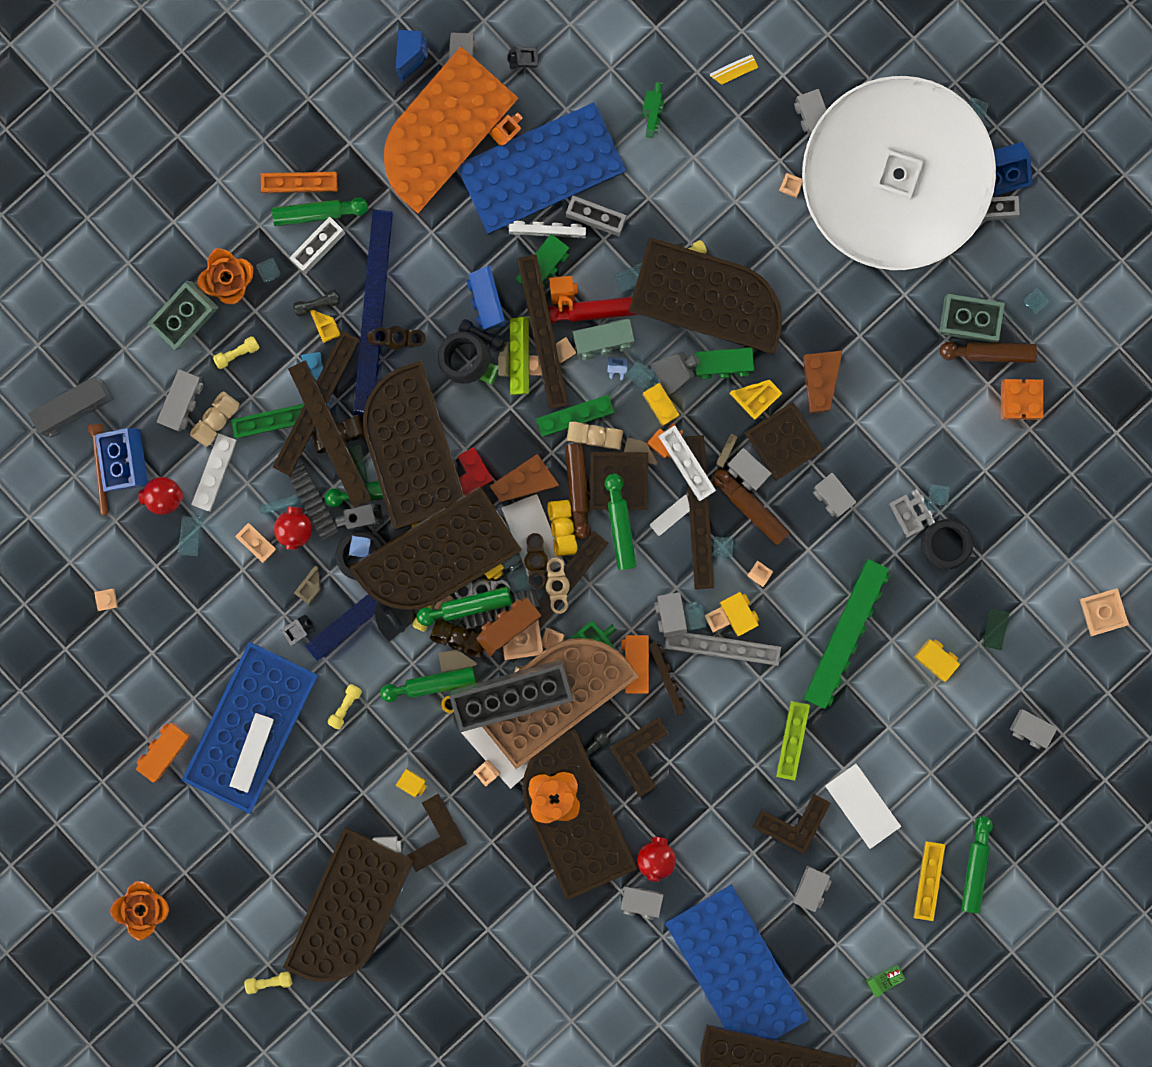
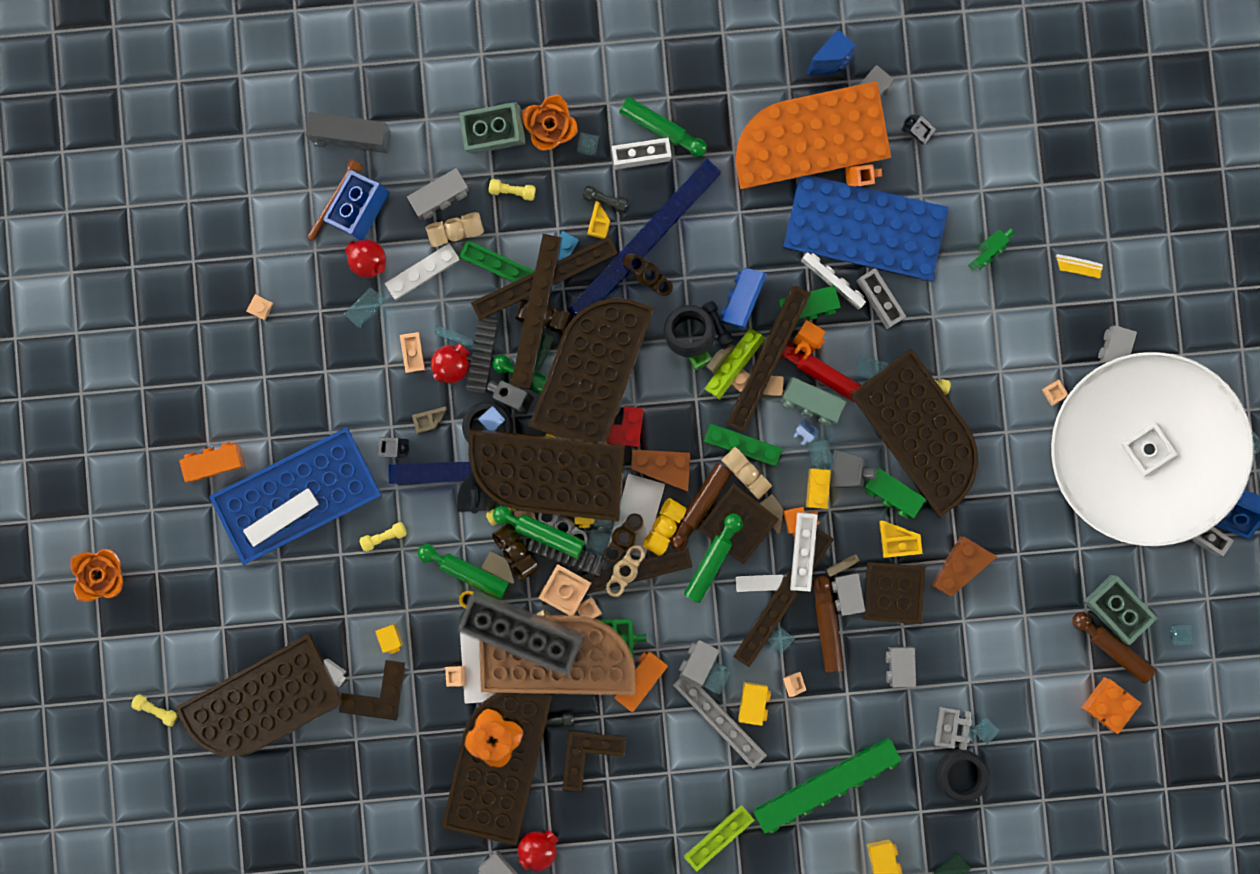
camera: 25 degrees right, 0 degrees up
(299, 182) = (665, 92): orange tile -> none
(508, 625) = (561, 573): dark orange wedge -> none
(671, 686) = (659, 702): dark brown plate -> none
(717, 619) = (732, 694): light nougat plate -> none

